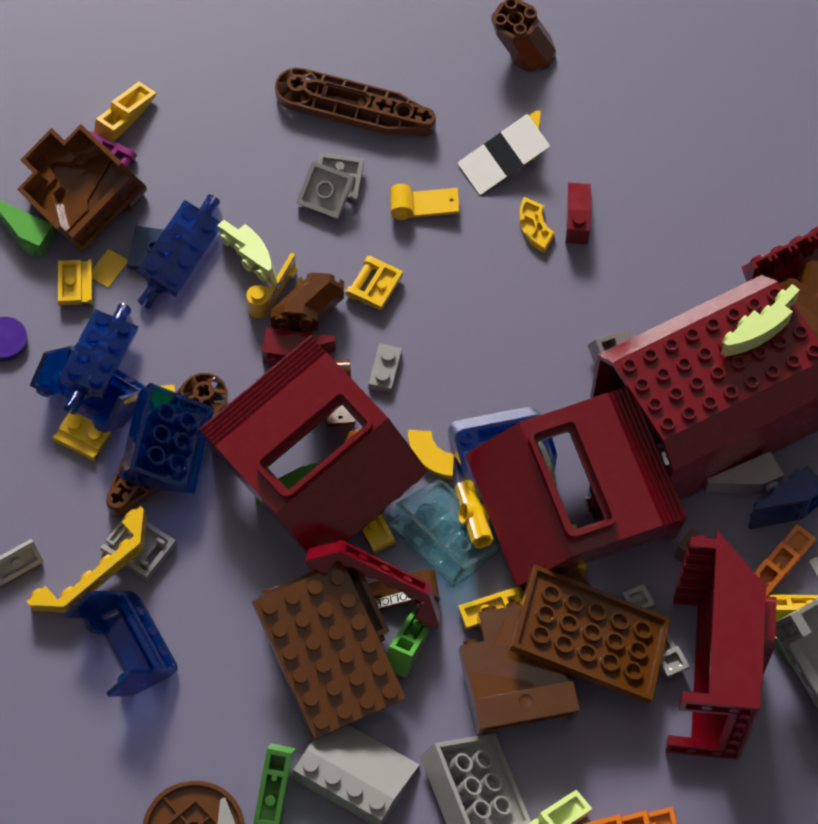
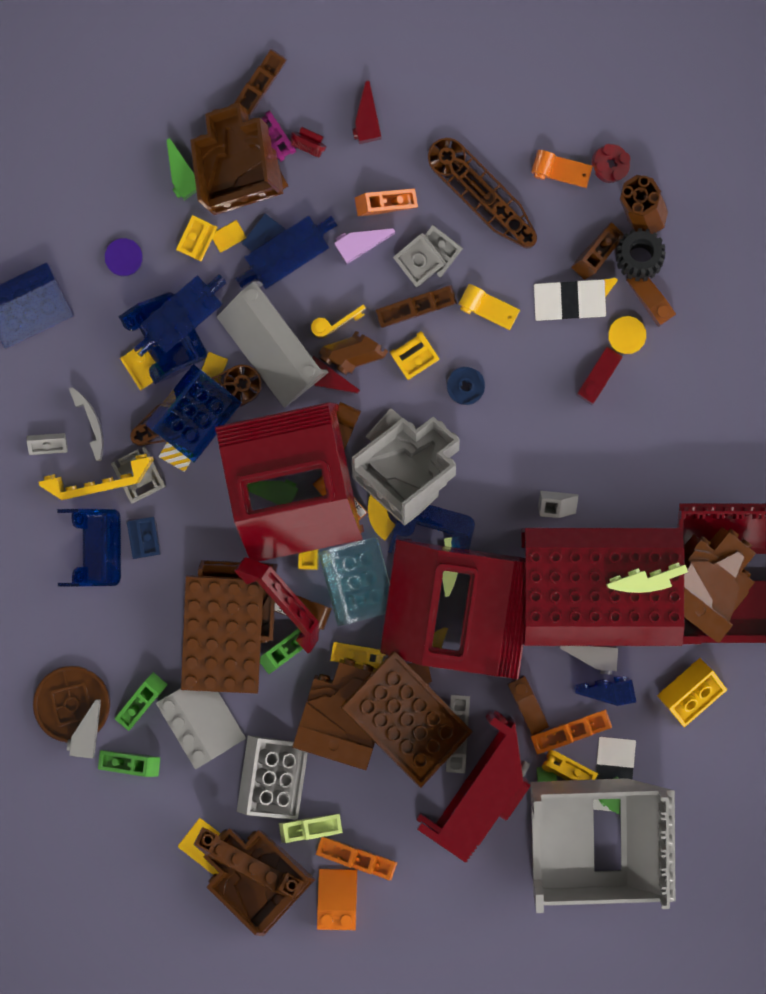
camera: 35 degrees right, 25 degrees up
(32, 499) = (97, 445): none -> light grey slope
(64, 105) = (261, 81): none -> reddish brown slope
(124, 111) = (306, 107): yellow slope -> none
(145, 139) = (308, 142): none -> dark red piece
(170, 506) = (174, 457): none -> sticker
(180, 606) = (143, 537): none -> dark blue plate
(197, 96) = (366, 122): none -> dark red slope
(212, 335) = (270, 344): none -> light grey slope
(251, 249) = (335, 289): yellowish green slope -> none
(254, 157) = (385, 202): none -> orange slope
(254, 203) = (358, 243): none -> lavender slope
(347, 237) = (416, 306): none -> reddish brown slope
(417, 50) = (560, 169): none -> orange door
(433, 382) = (407, 466): none -> light grey panel
(442, 274) = (468, 375): none -> dark blue plate
(459, 12) = (602, 168): none -> dark red plate
(473, 514) = (380, 582): yellow piece -> none
(503, 101) = (597, 252): none -> reddish brown slope
(533, 225) = (560, 368): yellow tile -> none
(548, 80) = (640, 240): none -> black tyre
(581, 162) = (627, 335): none -> yellow tile
(586, 117) = (652, 300): none -> dark orange slope

